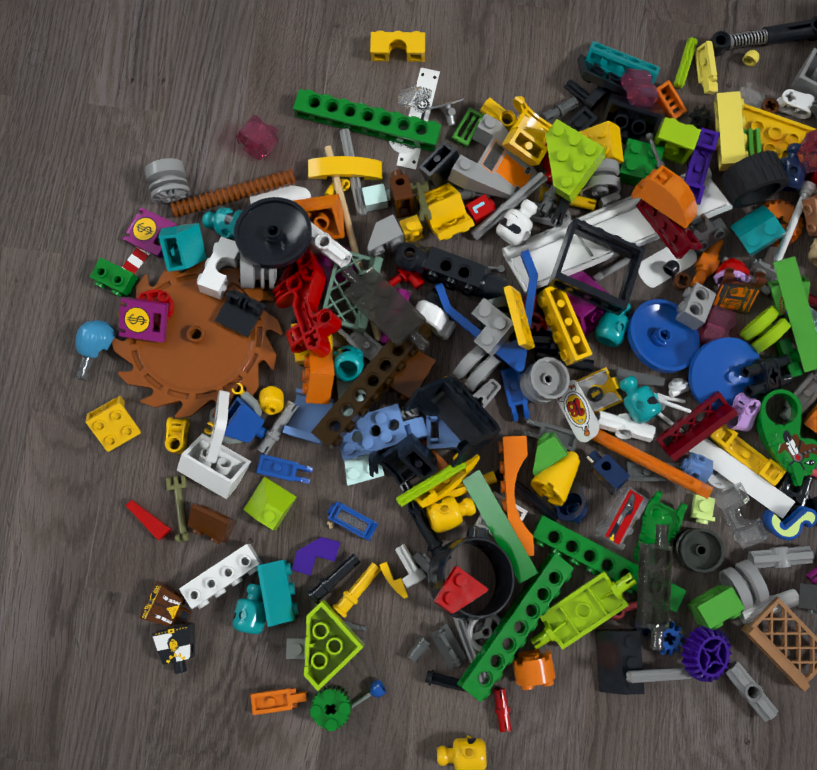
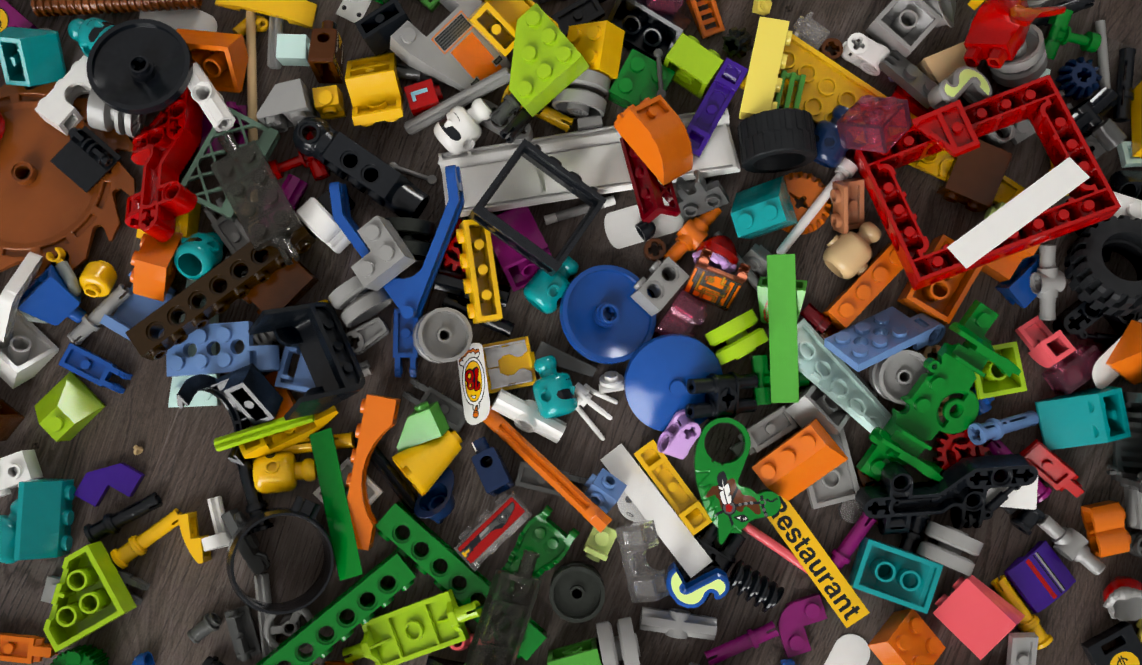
camera: 10 degrees right, 5 degrees up
(352, 520) = (162, 452): blue window -> none
(420, 189) = (351, 53): olive hinge -> none
(458, 591) = (248, 576): red wing -> none
(519, 317) = (414, 251): yellow tile -> none
(592, 390) = (504, 372): black hinge -> none
(701, 429) = (621, 444): dark red fence -> none

